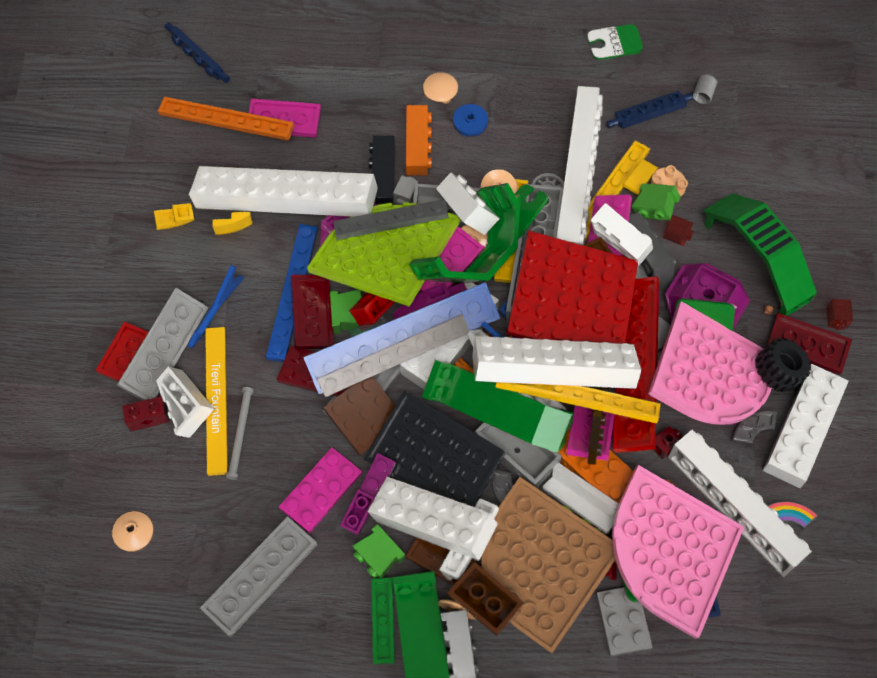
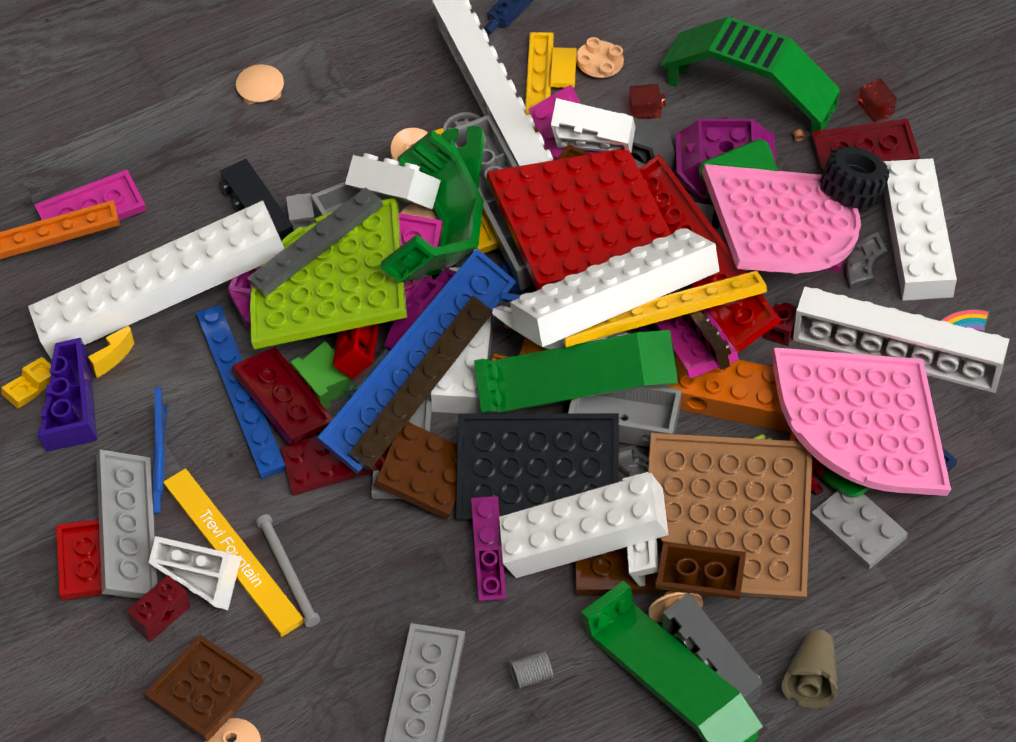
camera: 30 degrees left, 10 degrees down
(137, 484) = (203, 688): none -> reddish brown plate
(186, 241) = (69, 405): none -> dark purple wedge
(320, 490) = (427, 578): dark pink plate -> none
(340, 595) = (531, 669): none -> light grey piece
(378, 553) = (543, 603): bright green hips -> none
(382, 621) = (597, 670): green plate -> none
(417, 140) = (274, 152): orange brick -> none
(470, 127) = (321, 102): blue plate -> none
(581, 498) = (733, 420): white panel -> none
(656, 201) = (601, 80): bright green hips -> none

